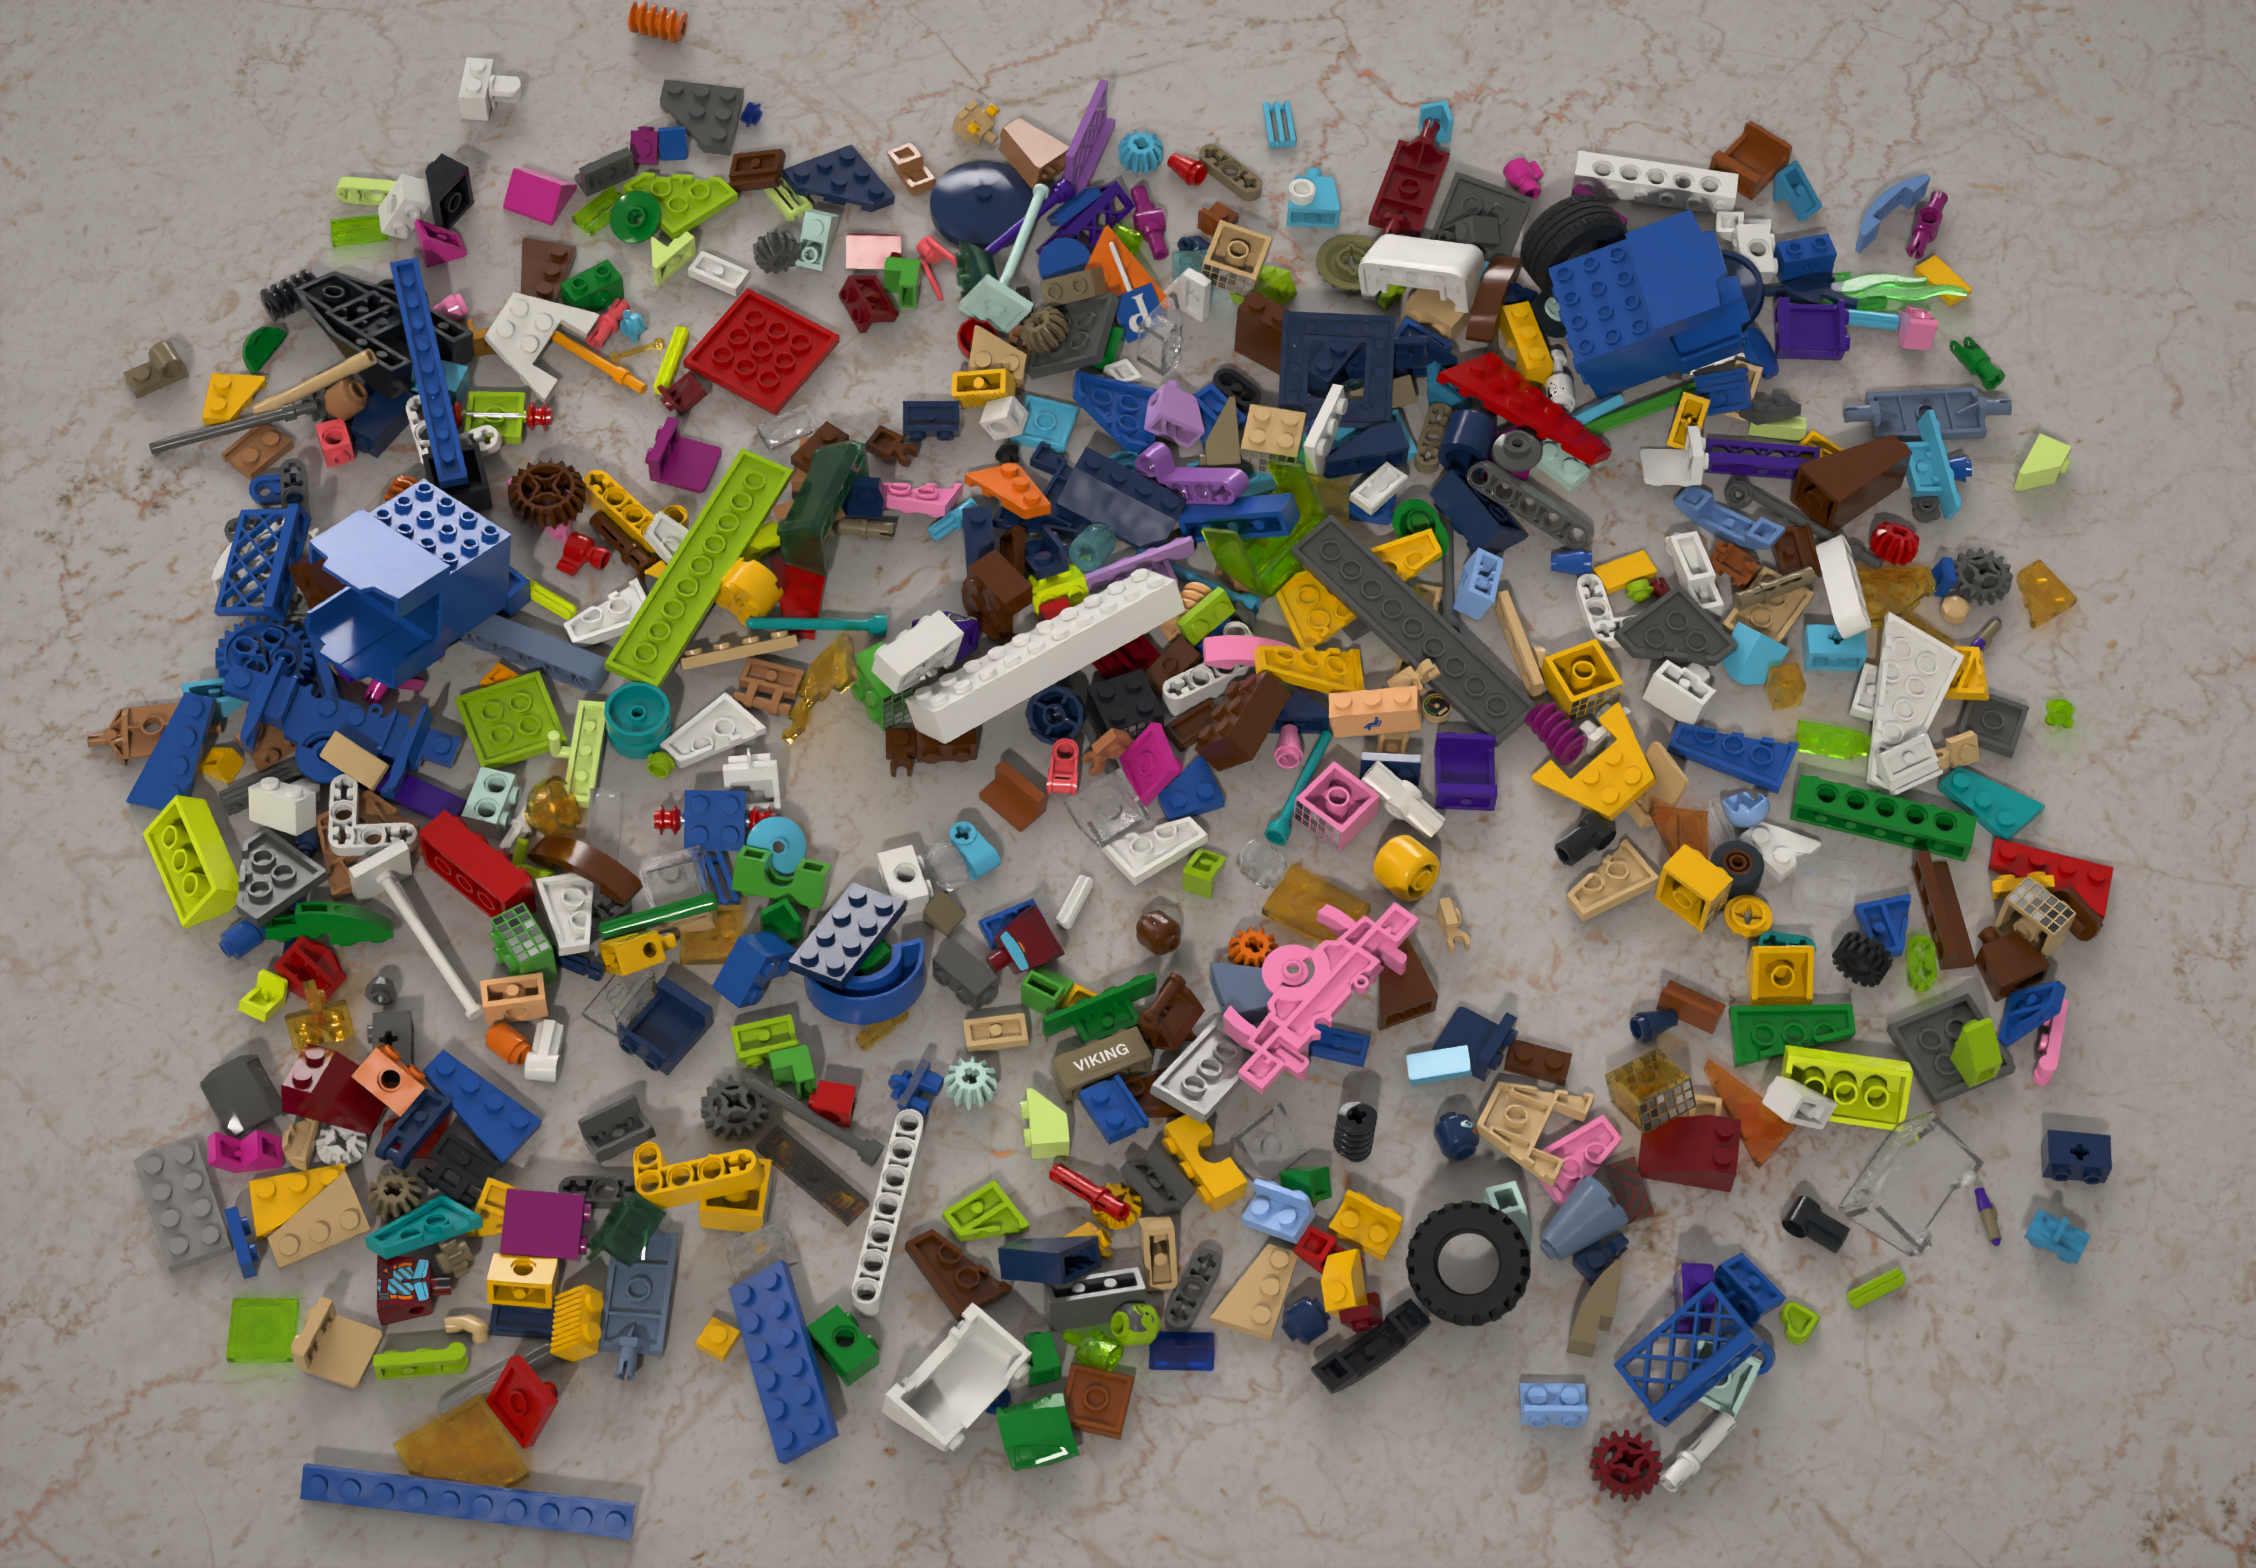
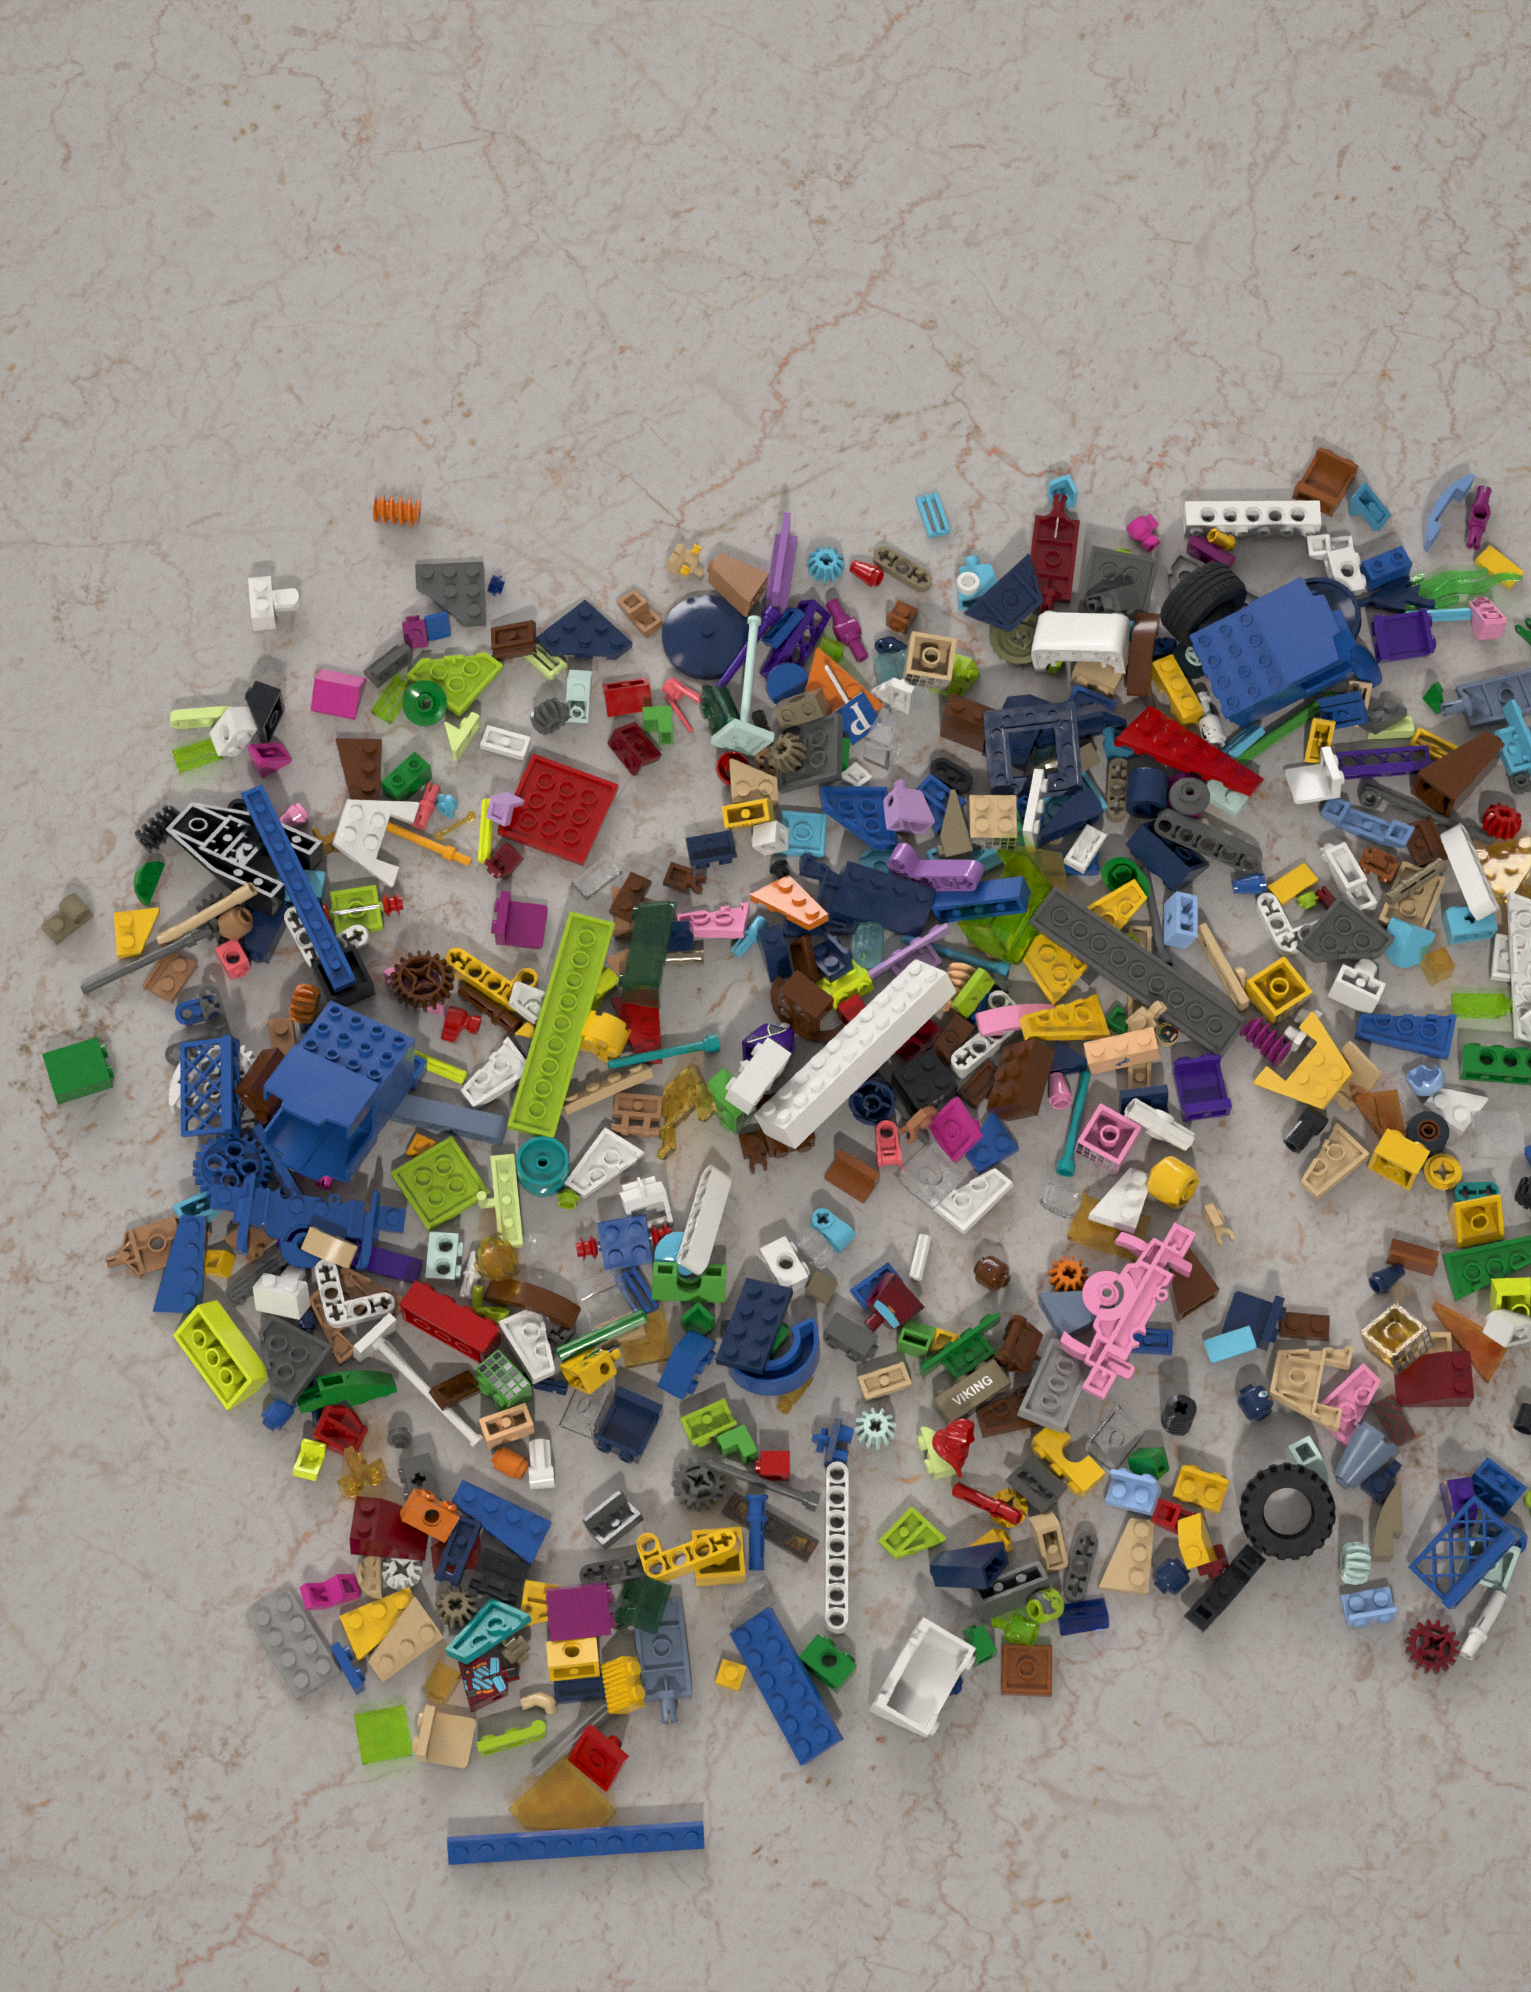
camera: 10 degrees left, 10 degrees up
(118, 528) = (78, 1070): none -> green brick
(241, 1095) = (315, 1547): dark grey slope -> none
(351, 1281) = (441, 1683): none -> clear yellow brick
(463, 949) = (455, 1390): none -> reddish brown plate
(693, 334) = (502, 807): none -> lavender panel
(795, 1160) = (756, 1519): none -> blue pin
(817, 810) = (704, 1220): none -> white beam
(953, 1275) = (900, 1592): reddish brown wing -> none
(1037, 1432) = (990, 1705): green slope -> none
(1063, 1109) = (954, 1442): none -> red hair
(1113, 1109) = (993, 1432): blue plate -> none
(1202, 872) = (1016, 1213): lime slope -> none
(1338, 880) = (1123, 1203): none -> white wing
(1346, 214) = (1009, 599): none -> dark blue wing
(1377, 679) = (1116, 1021): none -> green tile
(1544, 1345) = (1355, 1563): none -> light aqua gear
(1614, 198) = (1222, 540): none -> yellow pin
(1836, 400) = (1434, 697): none -> green tile

